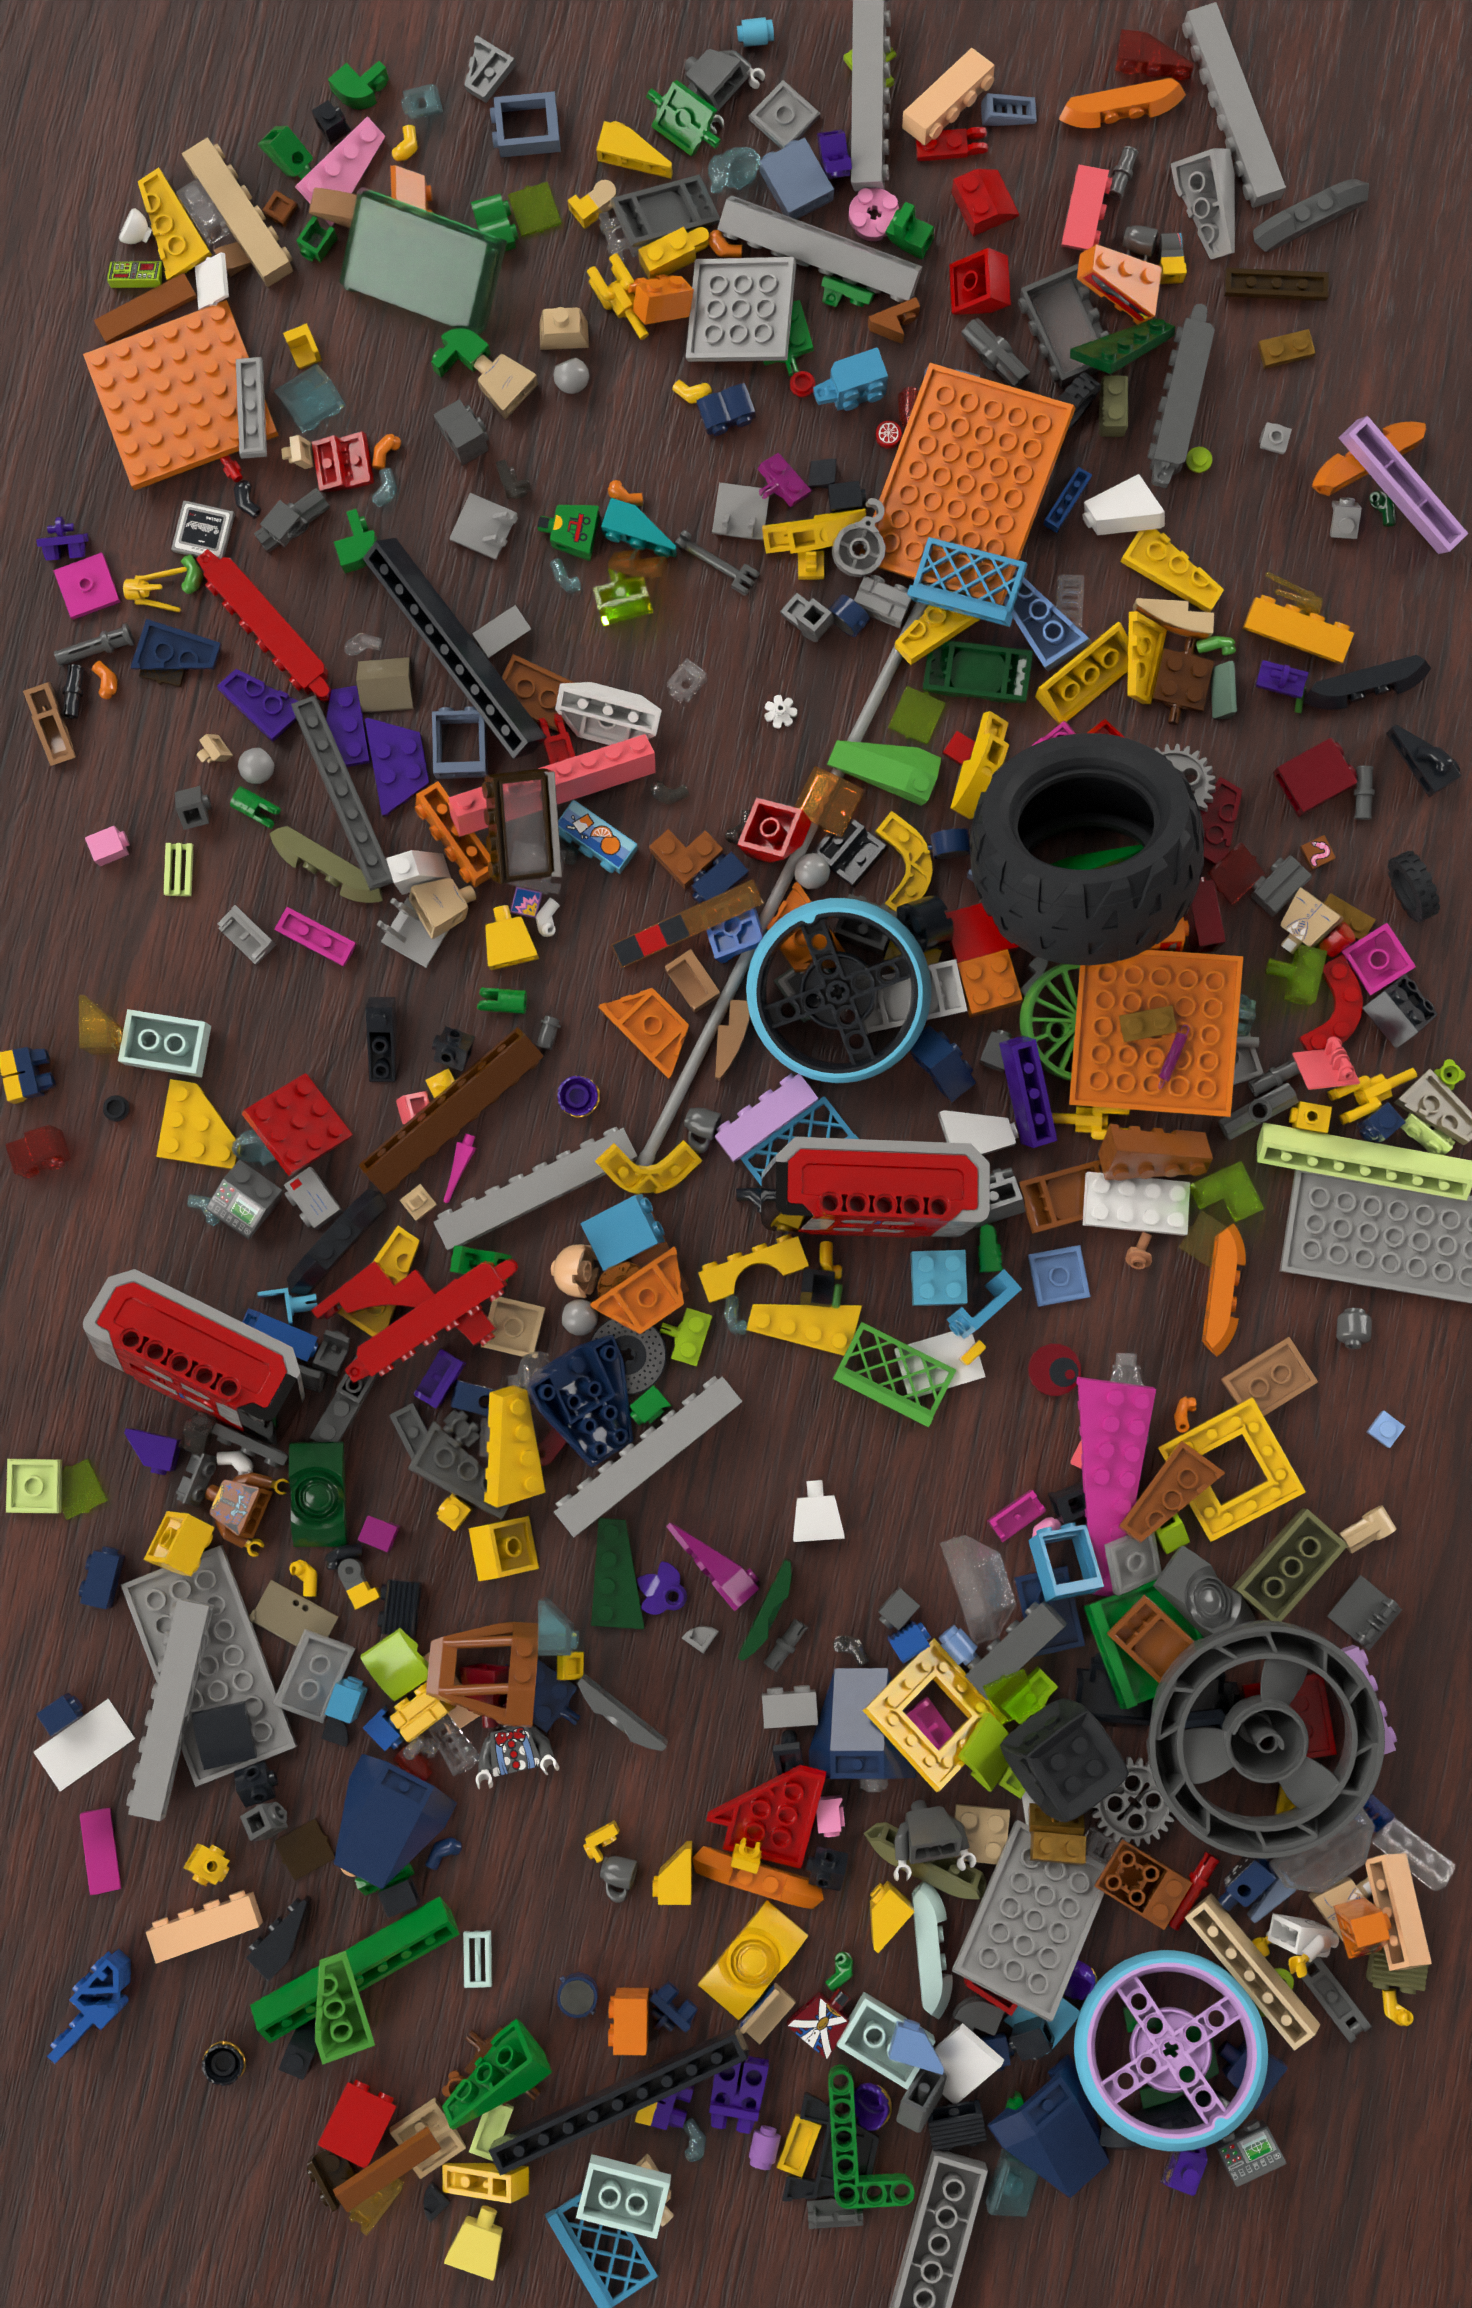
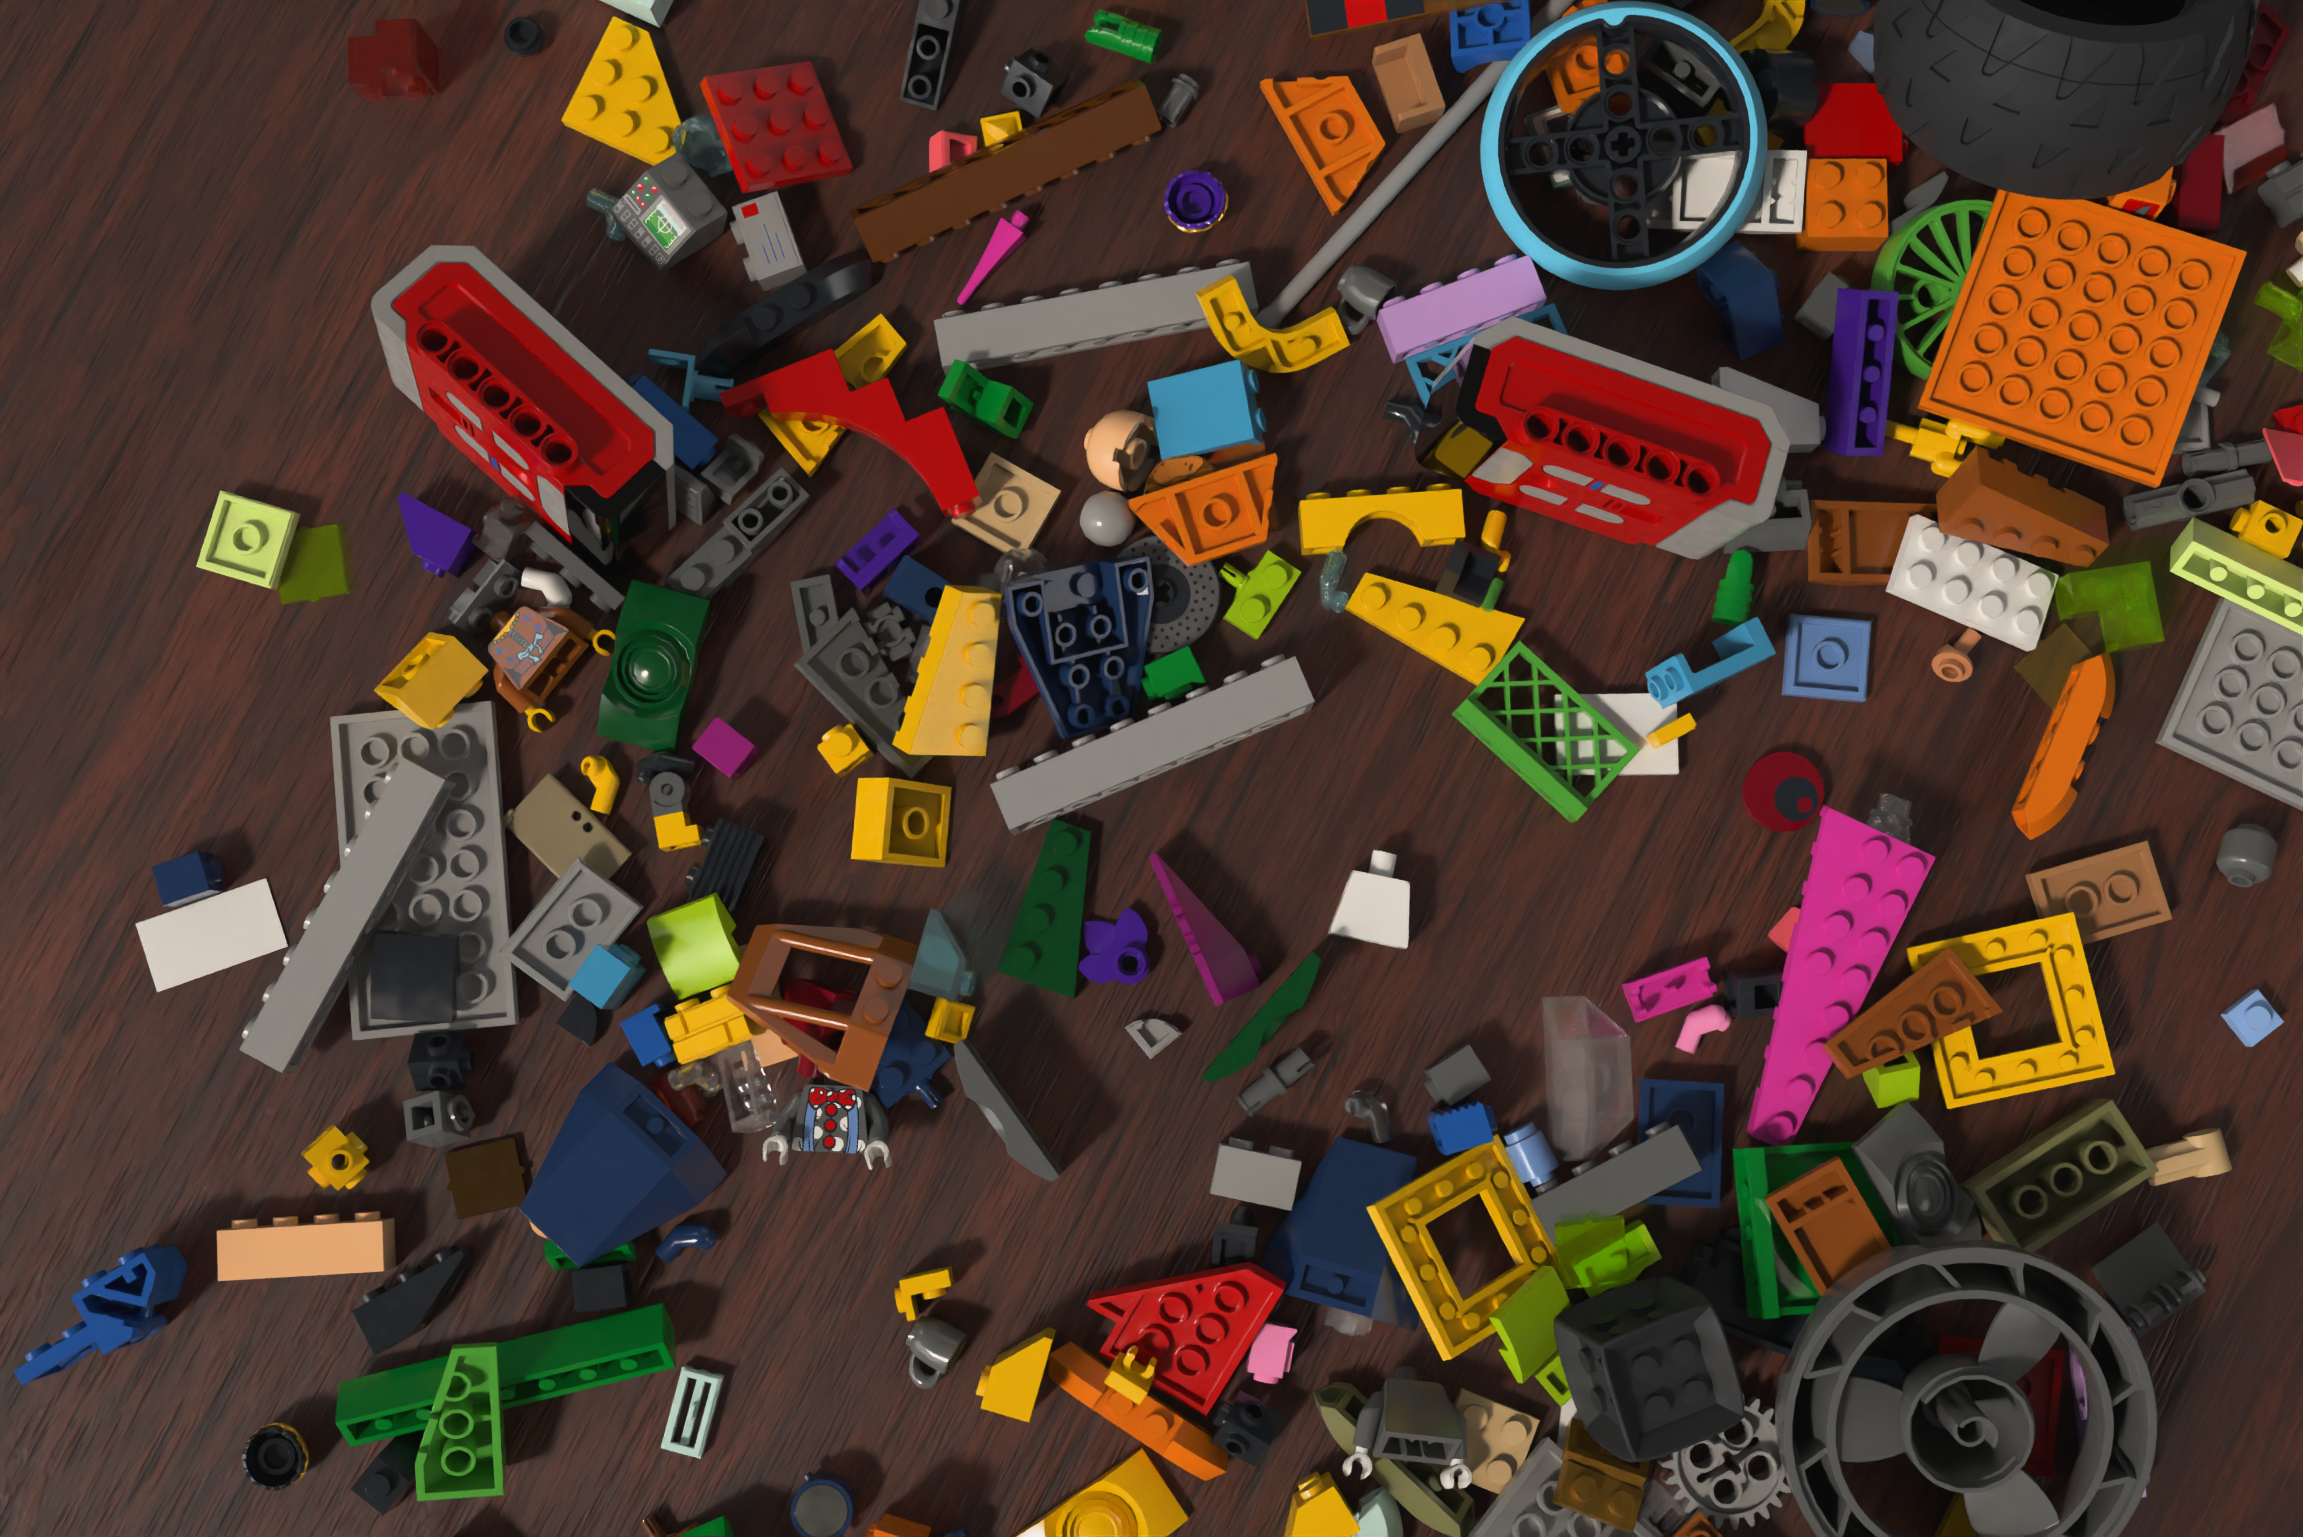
camera: 15 degrees right, 0 degrees up
(100, 1851) = (187, 1094): dark pink slope -> none
(102, 1578) = (306, 699): dark blue brick -> none
(418, 1202) = (920, 291): tan tile -> none
(431, 1317) = (890, 450): red hinge -> none
(731, 1037) = (1443, 179): medium nougat slope -> none
(930, 1722) = (1458, 1255): dark pink hinge -> none
(938, 1277) = (1650, 609): medium azure brick -> none
(1086, 1558) = (1757, 1076): dark azure window -> none
(1132, 1563) = (1824, 1106): light grey tile -> none
(1148, 1023) = (2074, 314): pearl gold plate -> none
(1173, 1056) = (2098, 372): magenta piece -> none
(1181, 1420) = (1953, 910): orange arm -> none

